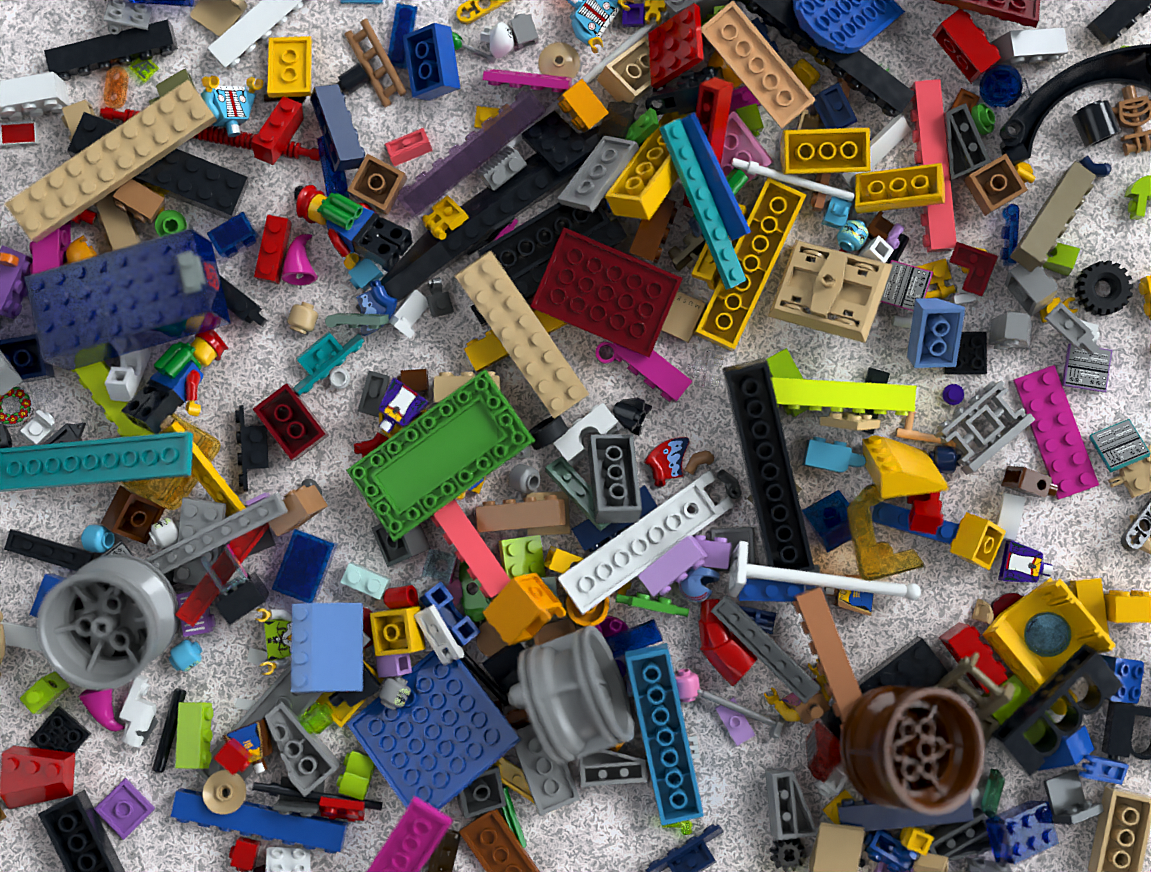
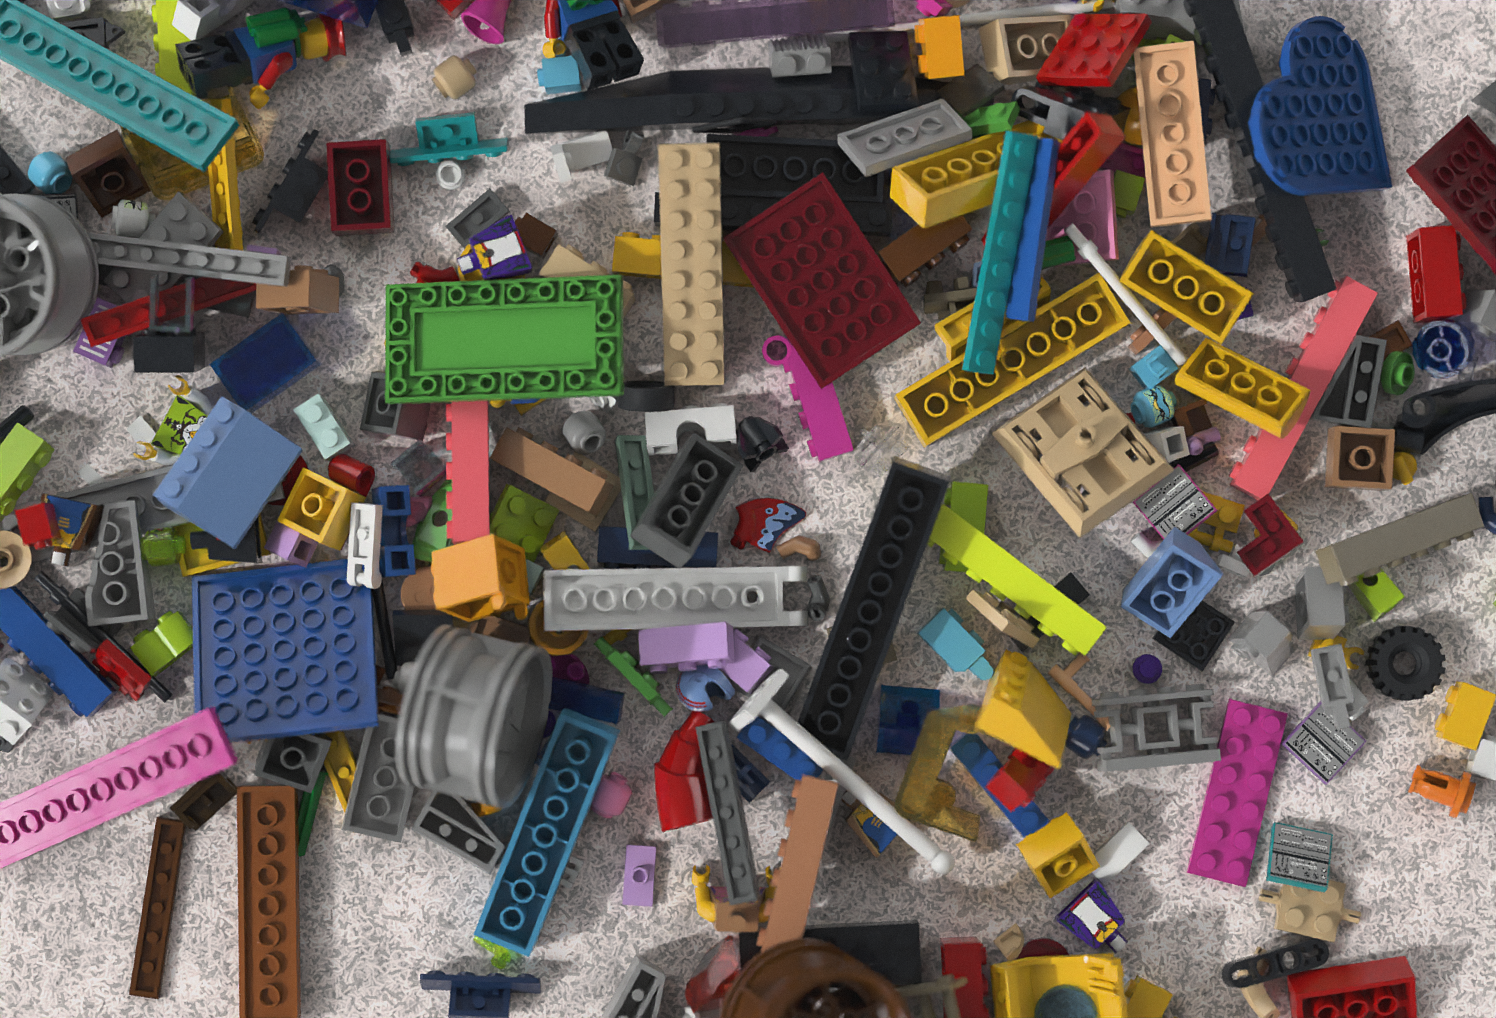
camera: 30 degrees right, 0 degrees up
(185, 655) = (61, 374): medium azure head -> none
(355, 320) = (515, 121): sand green plate -> none
(376, 302) = (546, 121): blue arm -> none
(394, 692) = (270, 577): light grey head -> none
(448, 215) = (697, 69): yellow plate -> none
(683, 317) = (893, 368): tan slope -> none
(776, 724) = (684, 910): light grey piece -> none
(805, 73) = (1225, 182): yellow piece -> none
(881, 145) = (1258, 324): white tile -> none
(1009, 233) = (1340, 524): clear blue plate -> none
(1029, 482) = (1165, 829): reddish brown torso -> none

